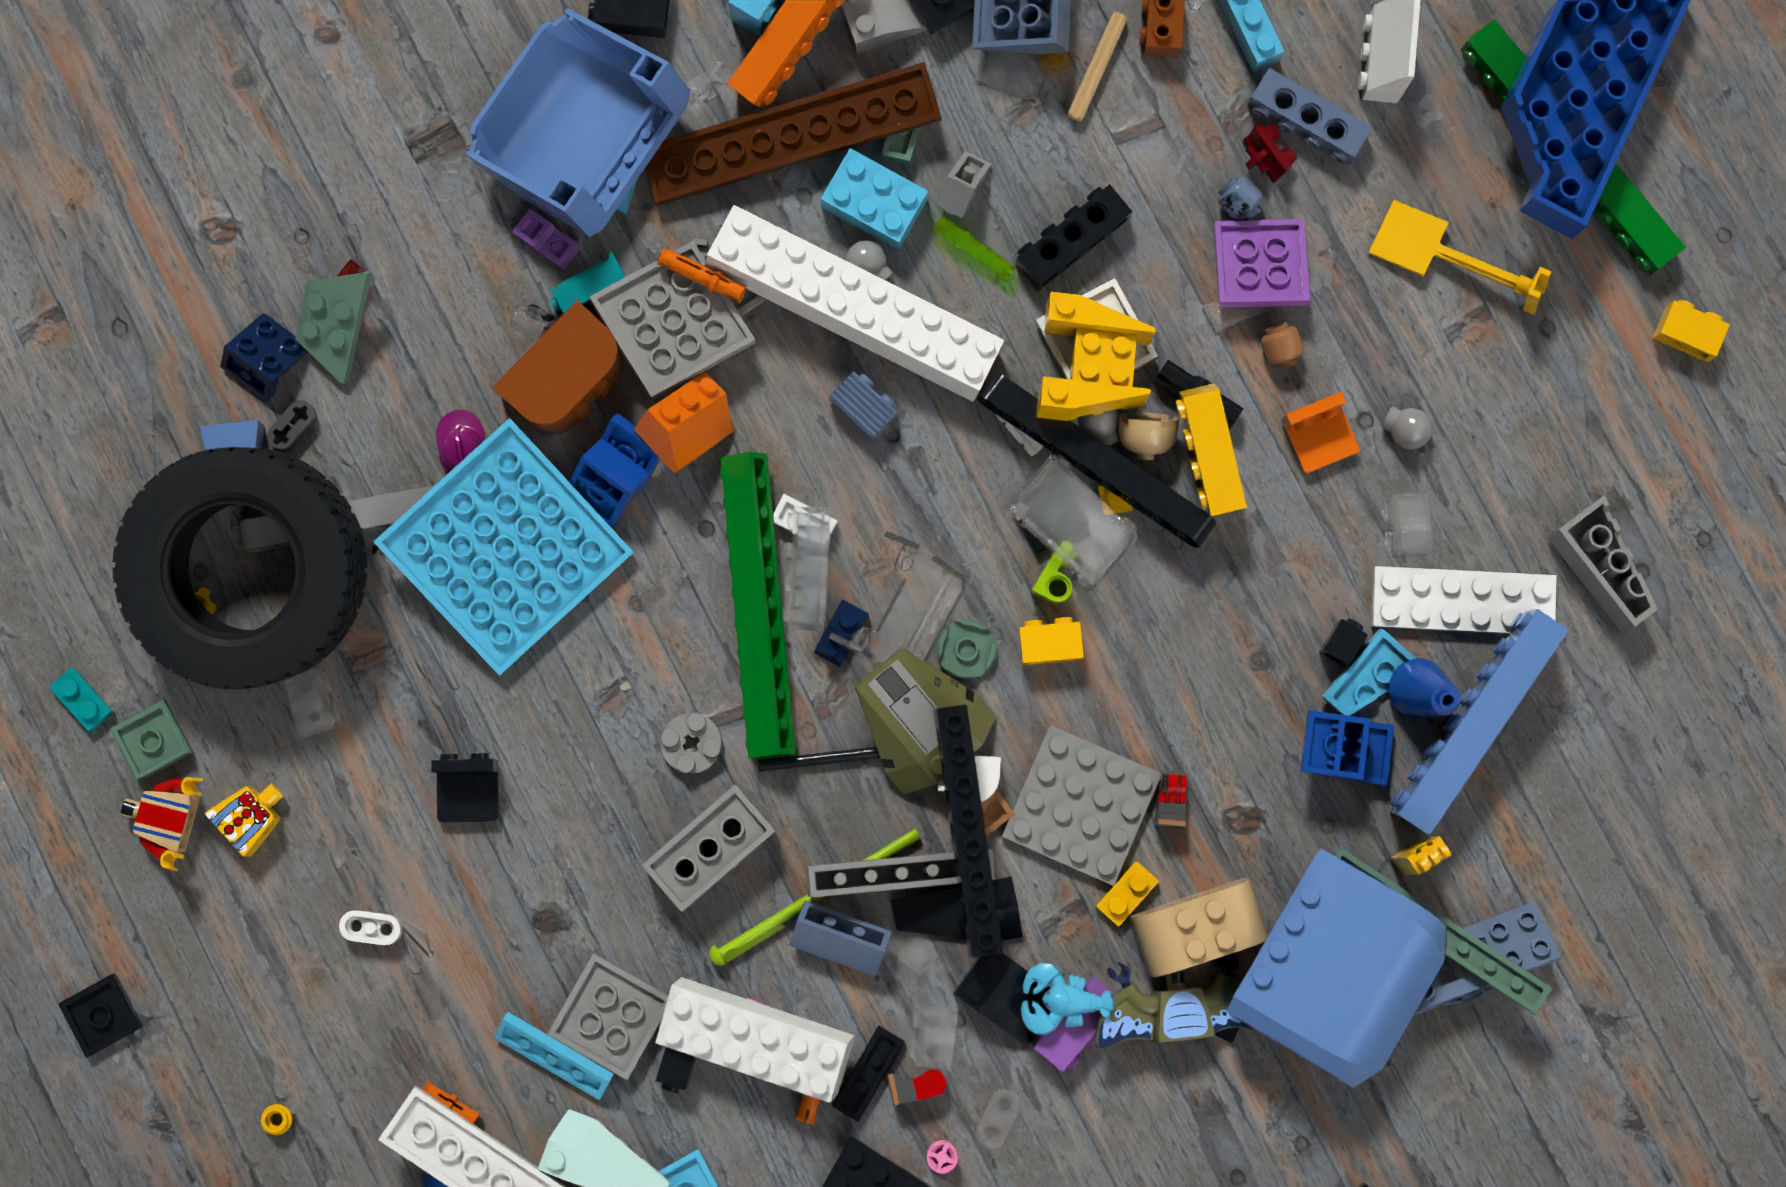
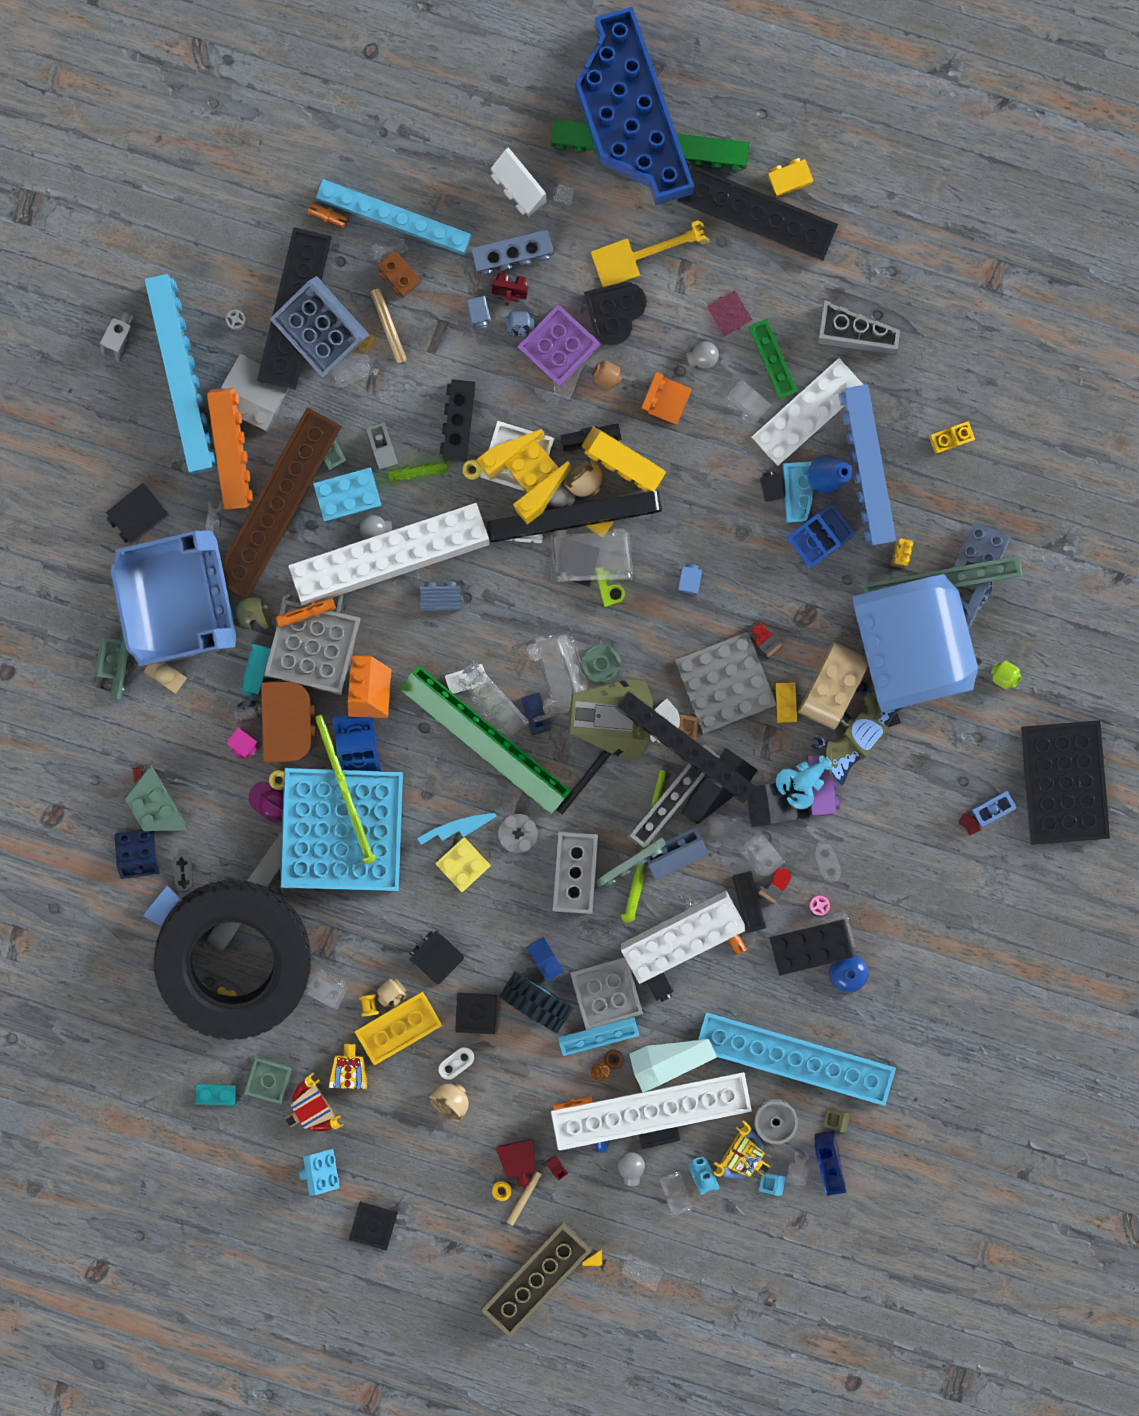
camera: 40 degrees left, 5 degrees up
(101, 898) = (320, 1172): none -> medium azure plate
(293, 1152) = (524, 1197): none -> tan bar
(322, 962) = (450, 1100): none -> tan cylinder
(327, 1103) = (517, 1160): none -> dark red torso
(341, 767) = (368, 1005): none -> yellow bush
(347, 825) = (398, 1028): none -> yellow plate
(361, 1155) = (556, 1167): none -> dark red piece
(378, 779) = (391, 993): none -> tan head
(444, 130) = (112, 663): none -> sand green bracket
(447, 894) = (475, 1013): none -> black tile
(487, 422) = (272, 782): none -> light yellow plate
(488, 201) = (166, 676): none -> tan tile
(493, 349) = (243, 744): none -> dark pink brick
(500, 606) = (368, 857): none -> lime bar
(516, 1096) = (600, 1071): none -> clear orange plate
(520, 948) = (536, 1002): none -> black wheel
(535, 1097) = (616, 1065): none -> reddish brown plate
(546, 239) = (212, 667): medium lavender slope -> none
(581, 911) = (545, 959): none -> blue slope
(598, 717) = (463, 864): none -> light yellow plate
(640, 676) = (464, 826): none -> medium azure slope
(646, 219) = (253, 609): none -> olive helmet
(791, 902) = (637, 859): none -> sand green plate
(1033, 295) = (467, 474): none -> light yellow plate
(1050, 642) = (637, 622): yellow brick -> none
(1155, 652) = (690, 579): none -> medium blue brick
(1210, 142) = (479, 312): none -> sand blue brick
(1358, 285) = (614, 309): none -> black plate
(1403, 1108) = (1006, 675): none -> lime head
(1480, 411) = (729, 313): none -> clear pink piece
(1481, 505) = (773, 359): none -> green plate
(1597, 784) = (951, 437): none -> yellow slope
(1619, 336) = (759, 213): none -> black plate

